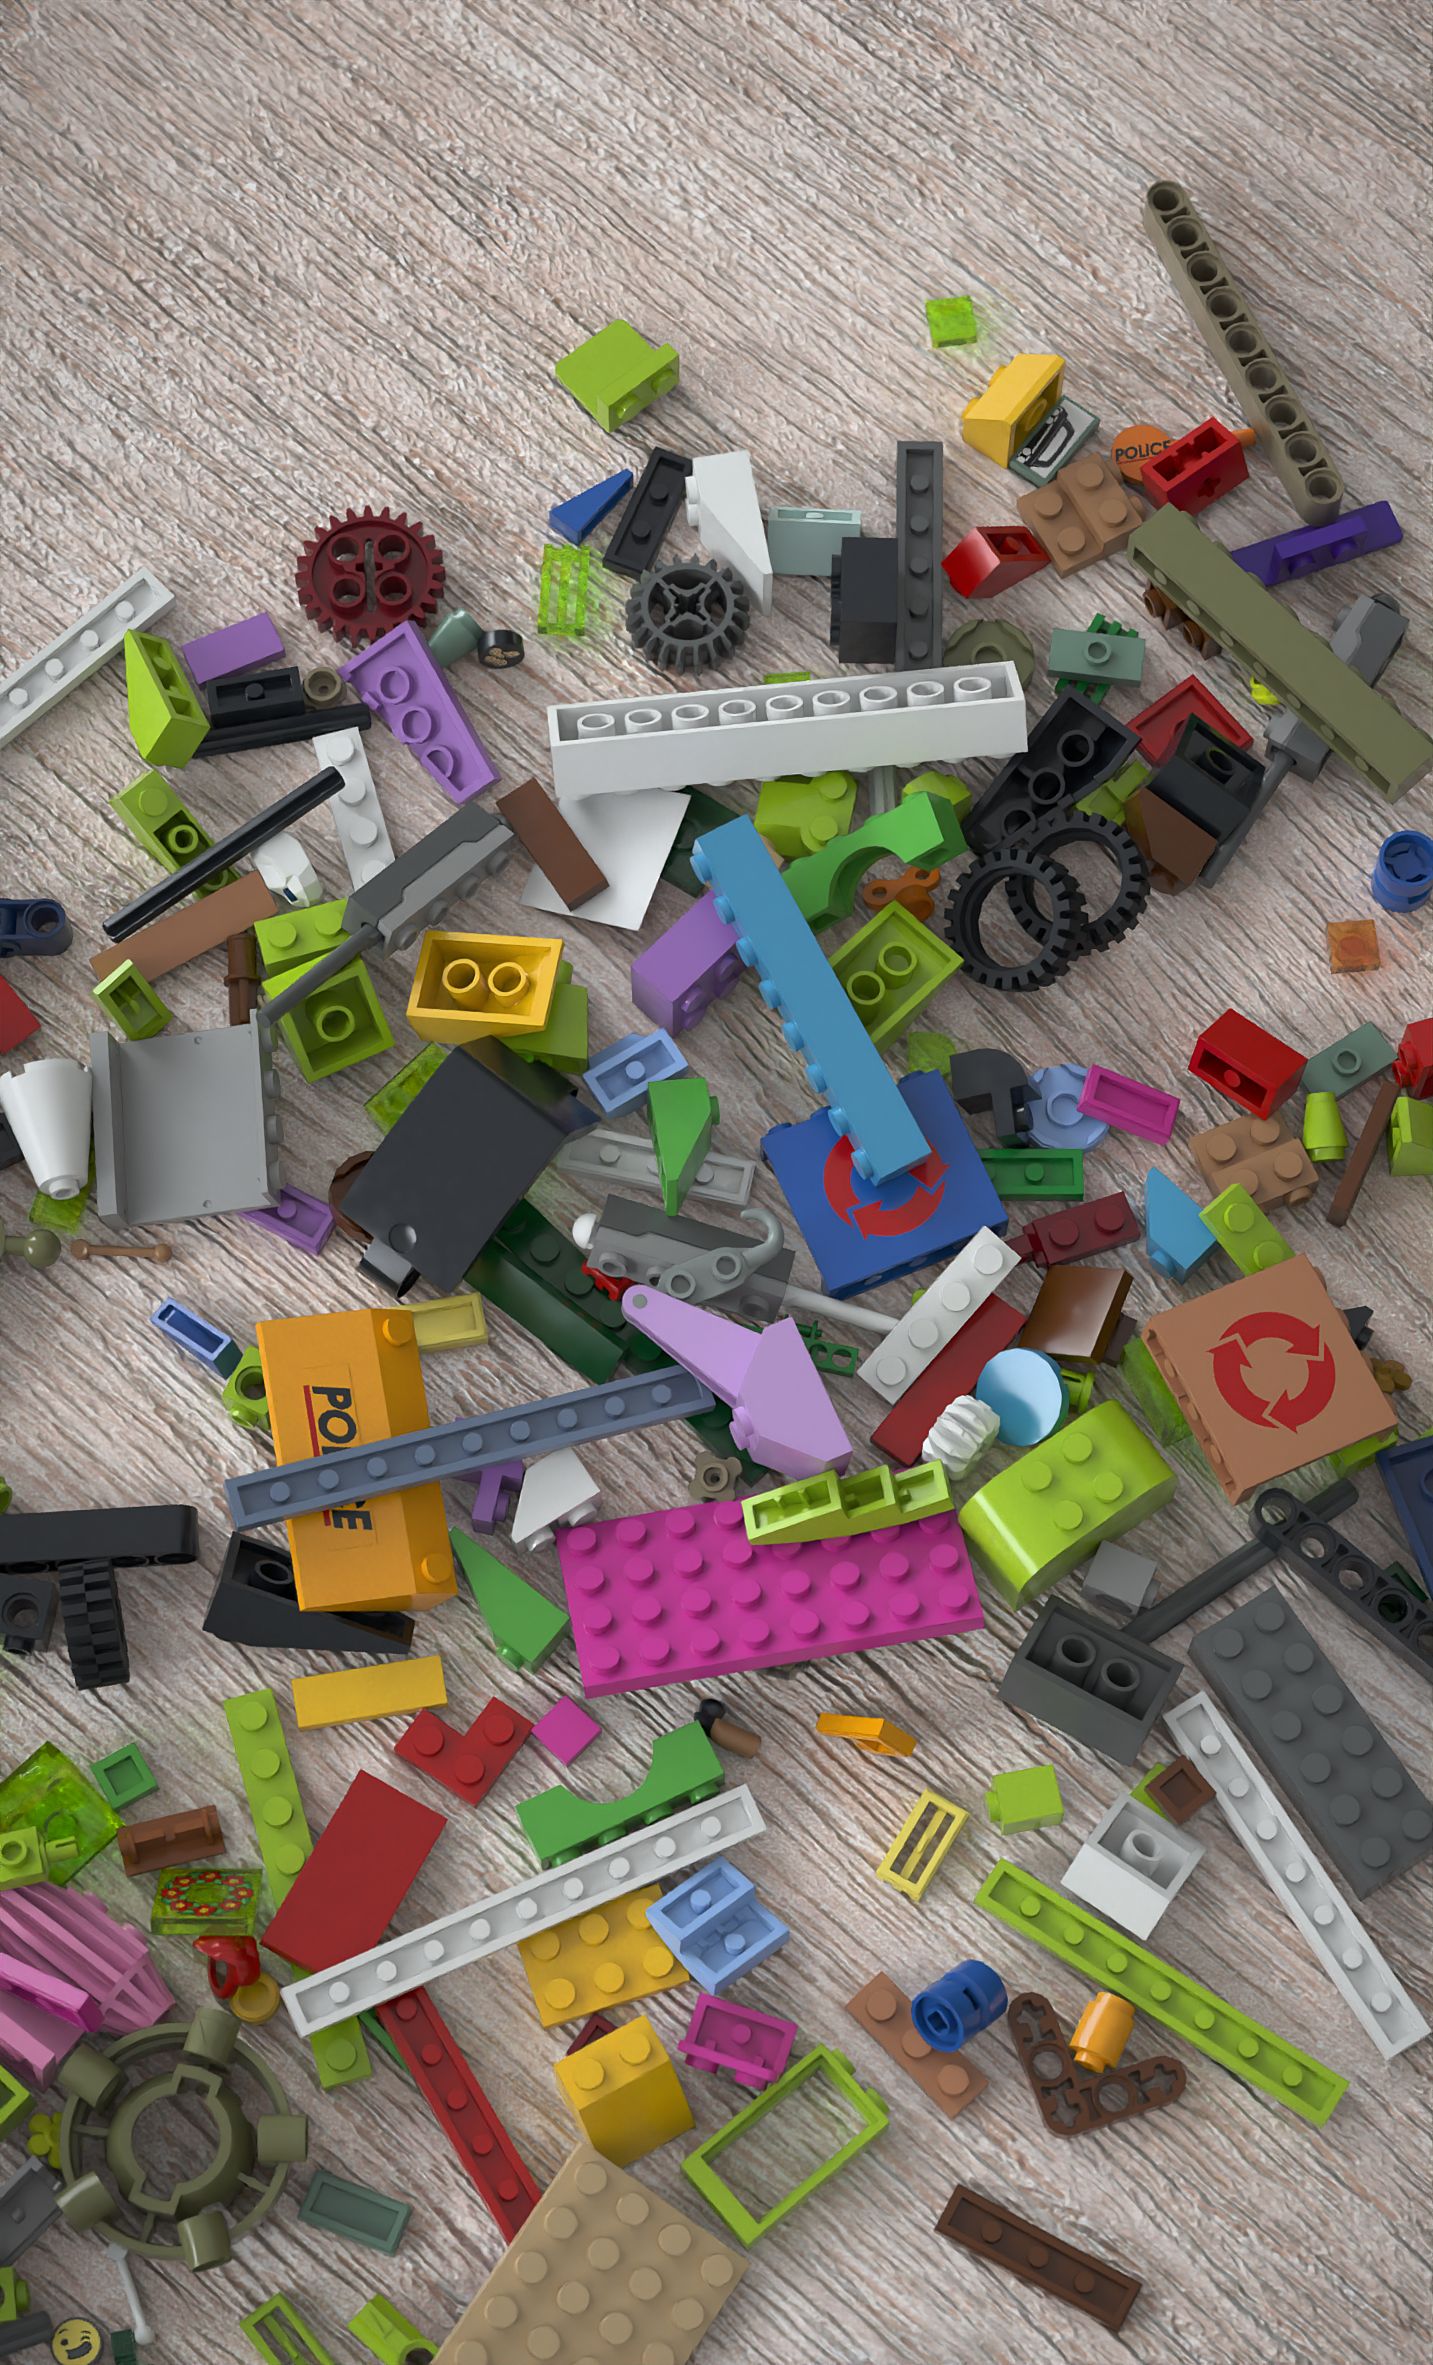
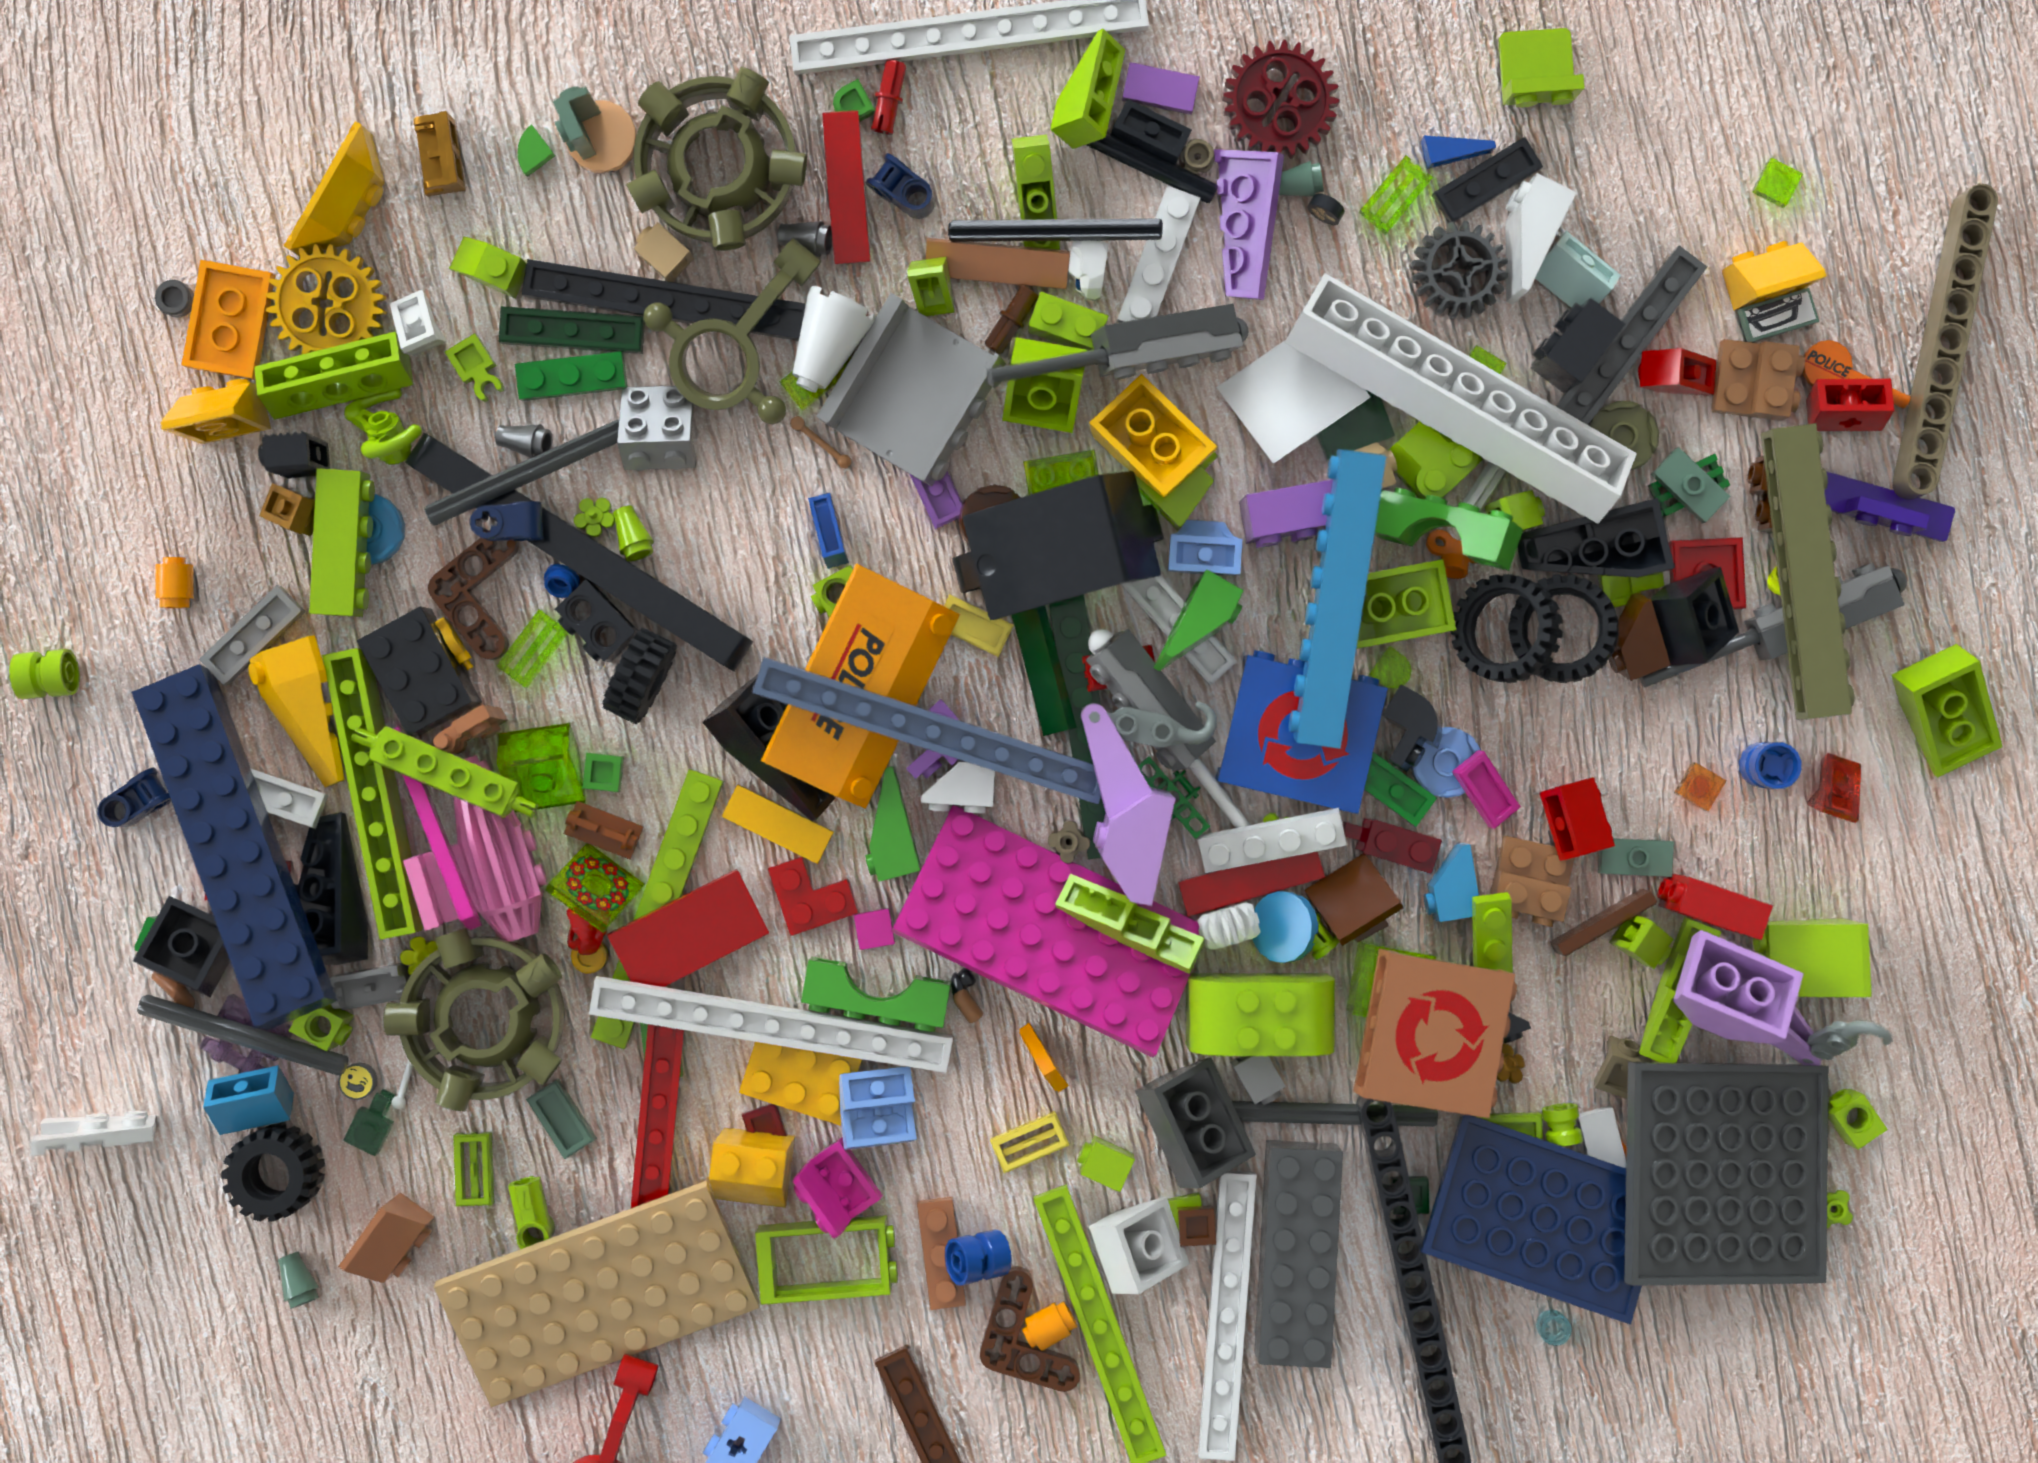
camera: 30 degrees right, 20 degrees up
(552, 844) = (1263, 365): reddish brown tile -> none
(1323, 1129) = (1591, 890): lime cone -> none

